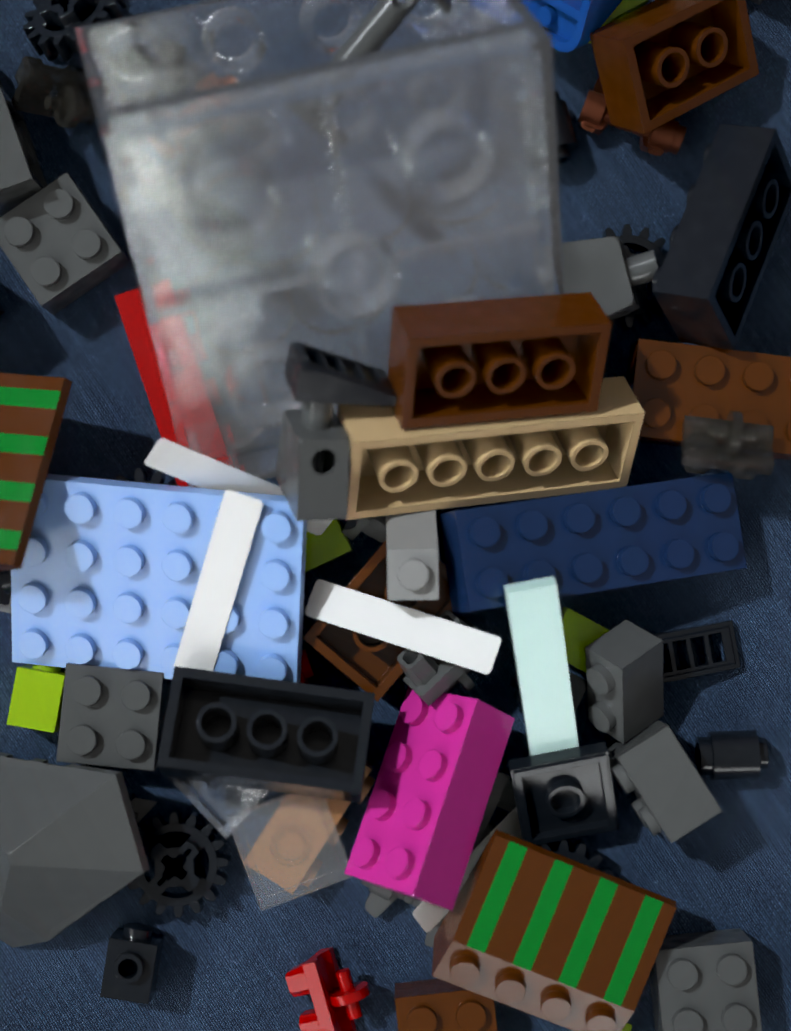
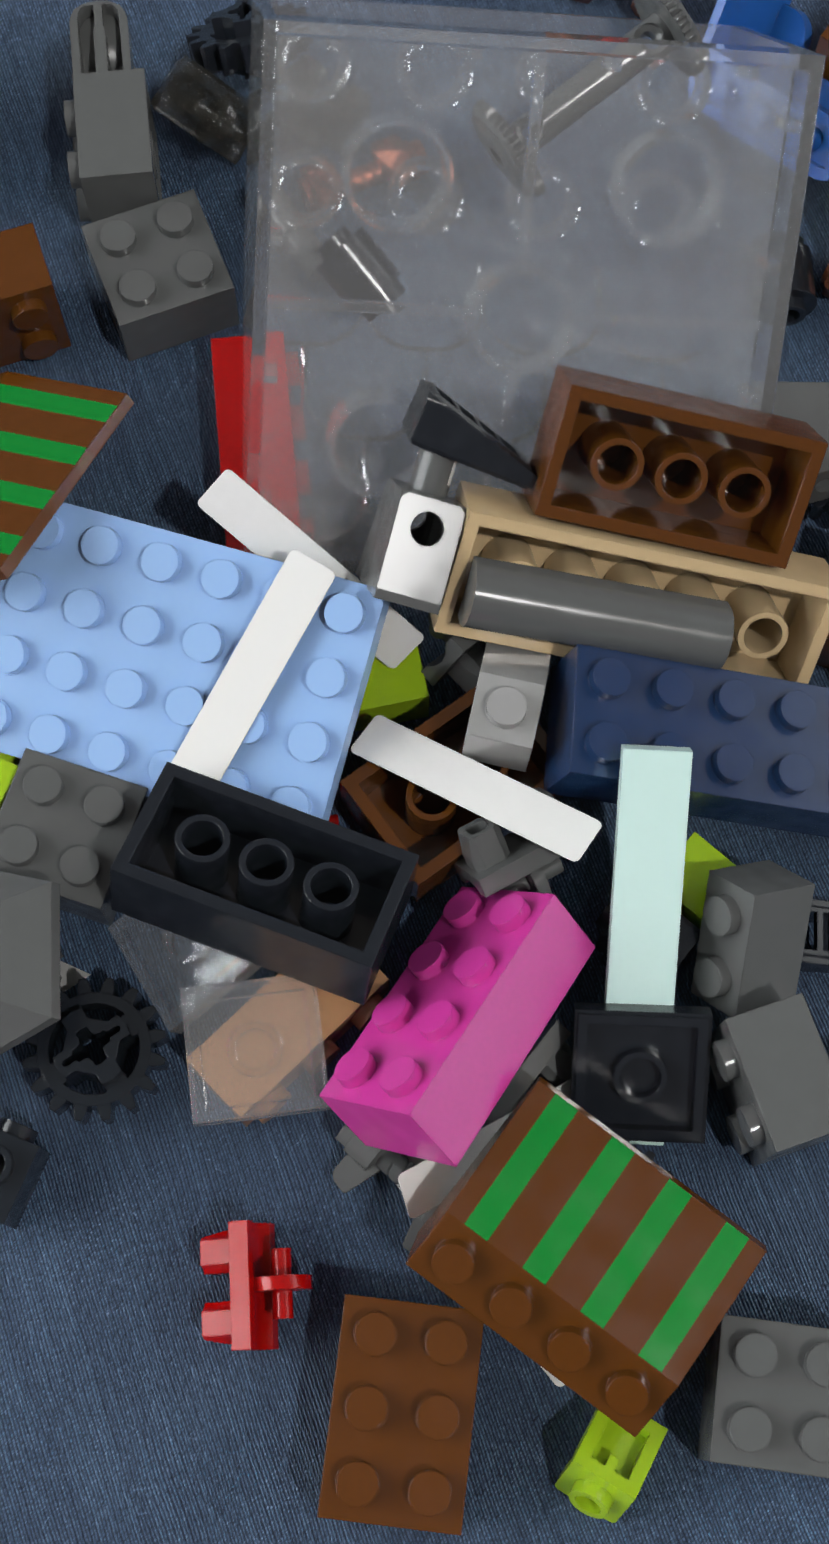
camera: 10 degrees right, 15 degrees down
(463, 483) = (596, 613): none -> dark grey brick

